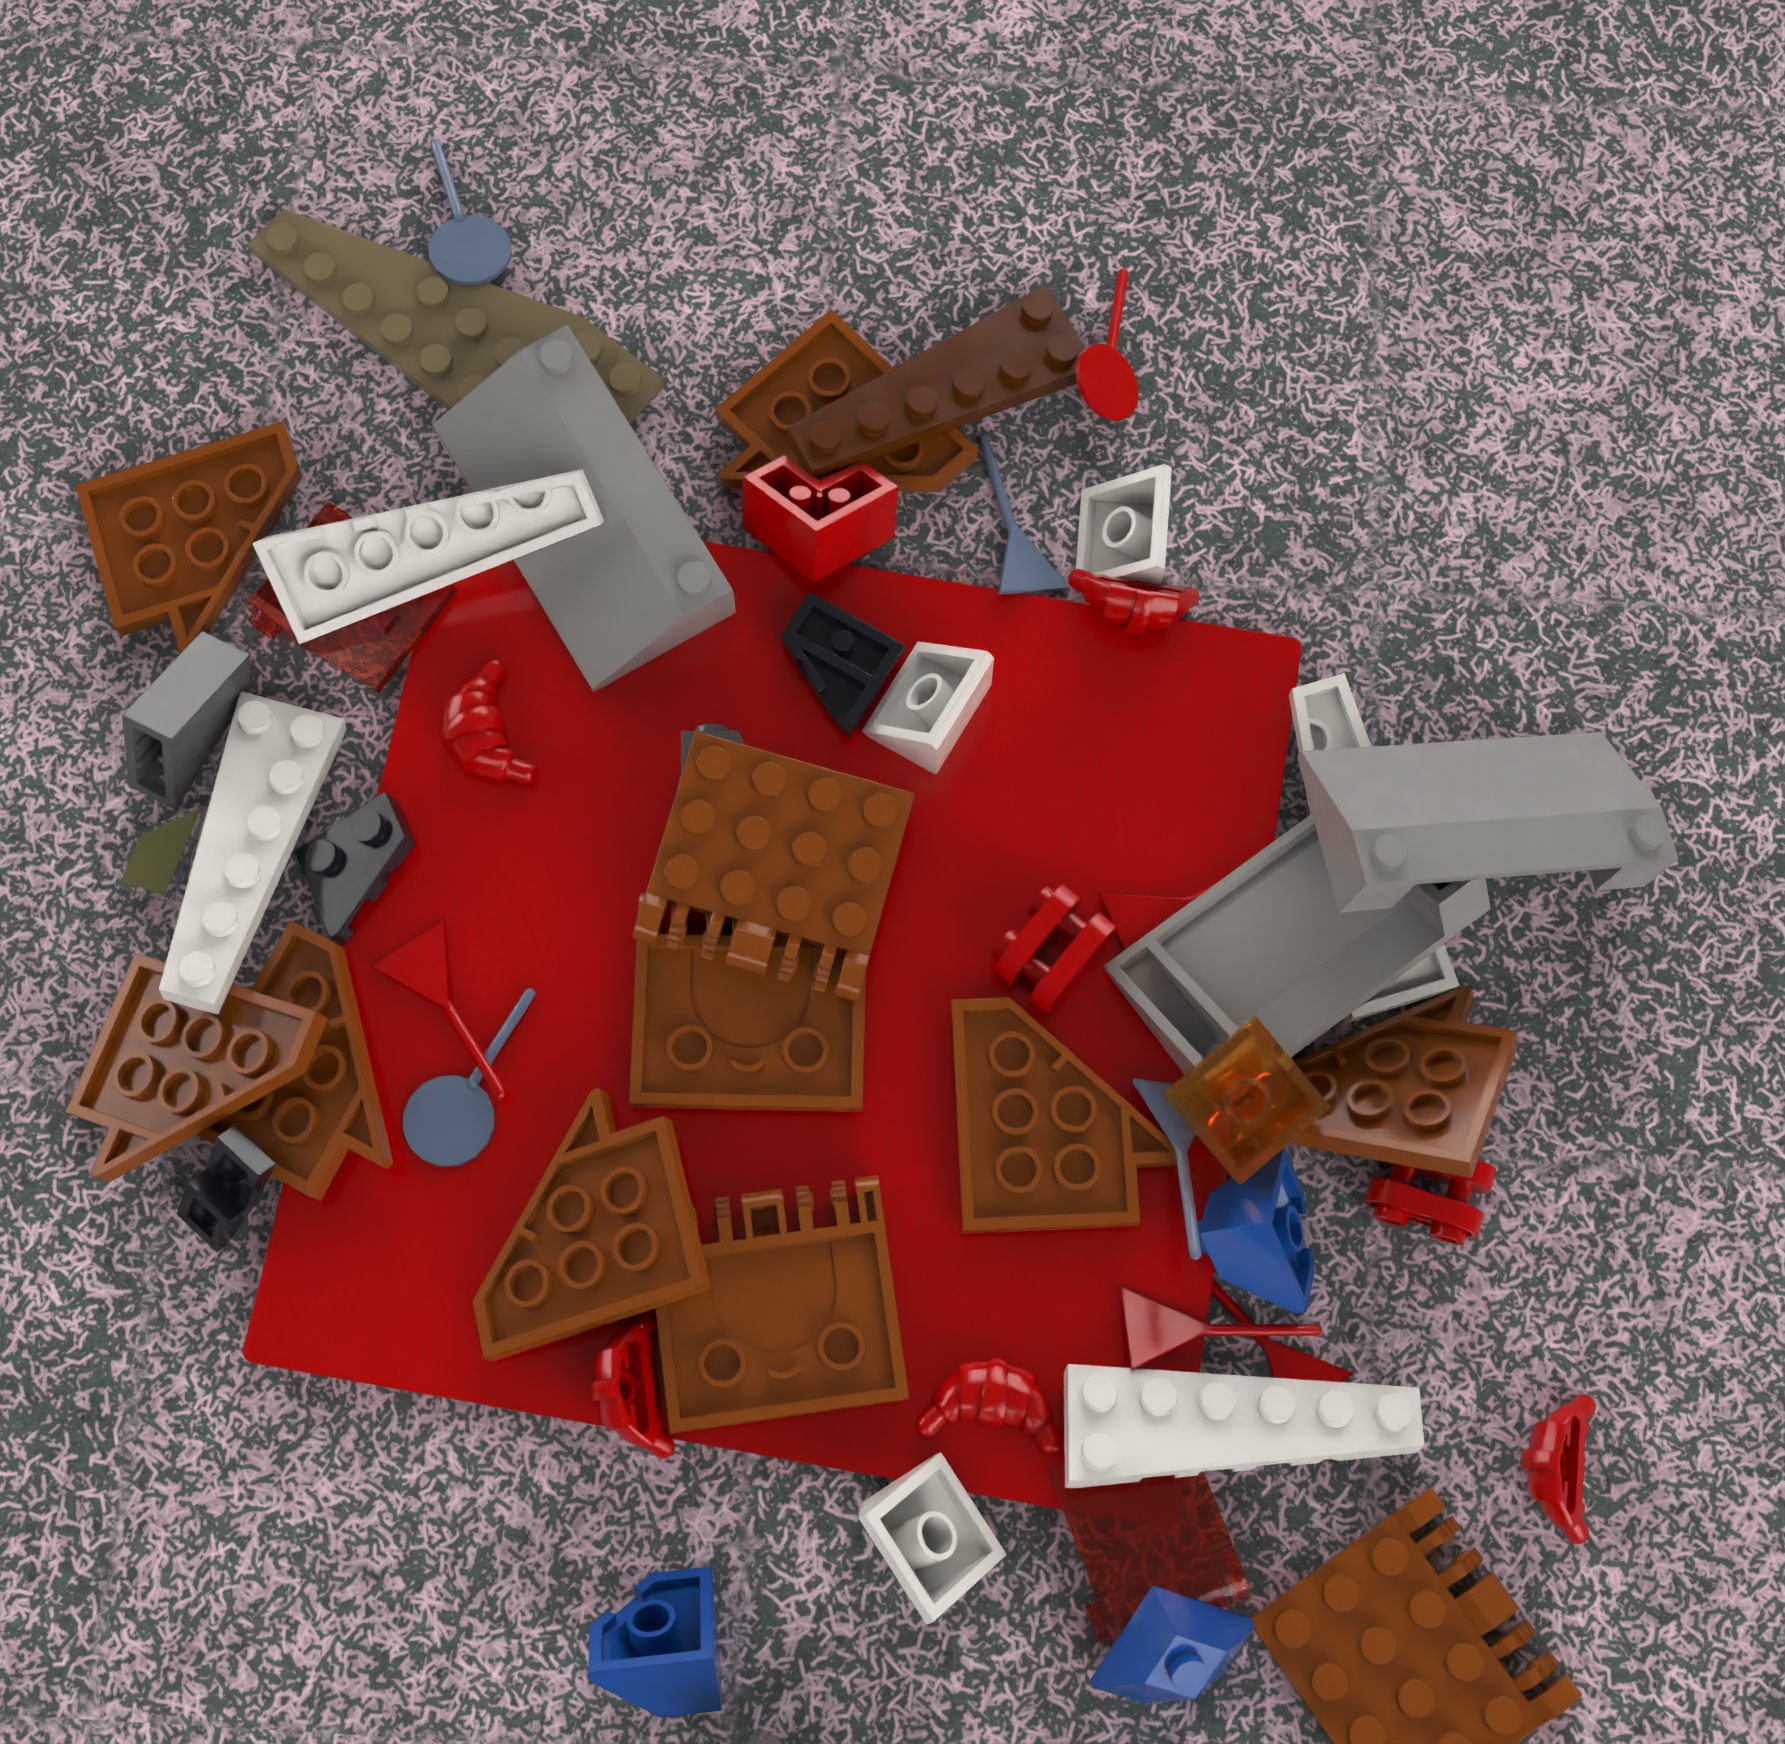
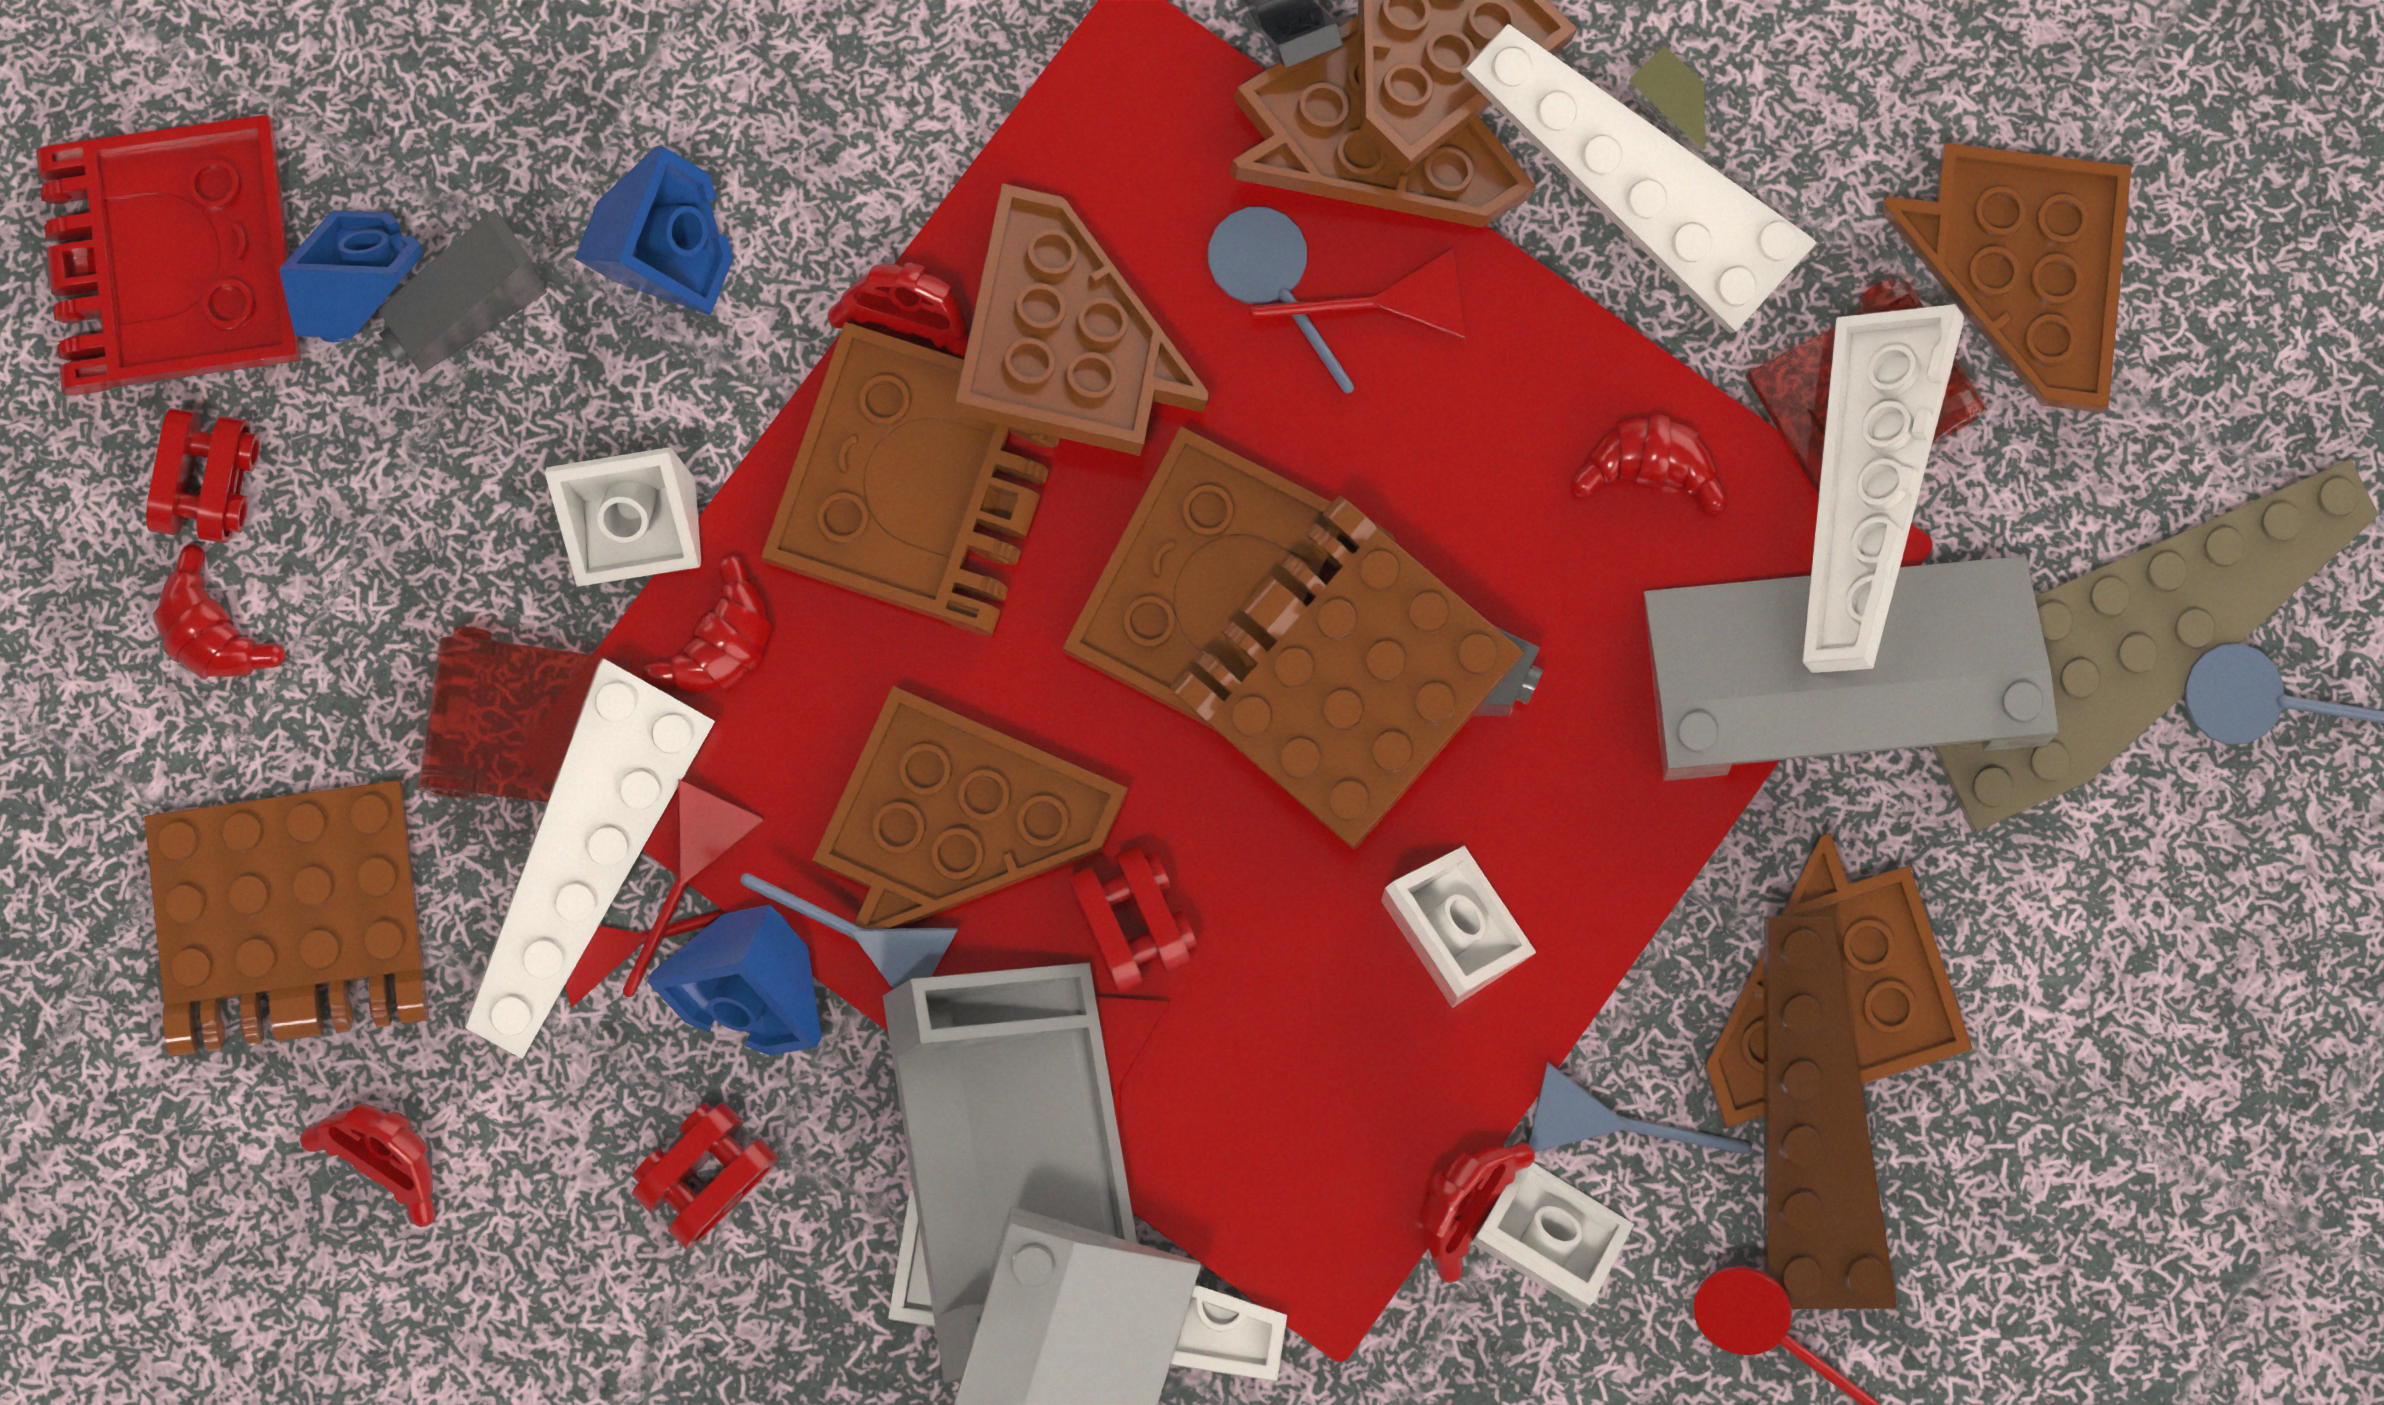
camera: 115 degrees right, 5 degrees up
(183, 717) = (1811, 174): dark grey slope -> none
(355, 861) = (1570, 274): black wing -> none
(815, 521) = (1709, 910): red brick -> none
(840, 659) = (1549, 857): black wing -> none
(1171, 1649) = (408, 690): blue slope -> none
(1246, 1101) = (865, 1008): clear orange slope -> none
(1412, 1087) = (812, 1187): dark orange wing -> none

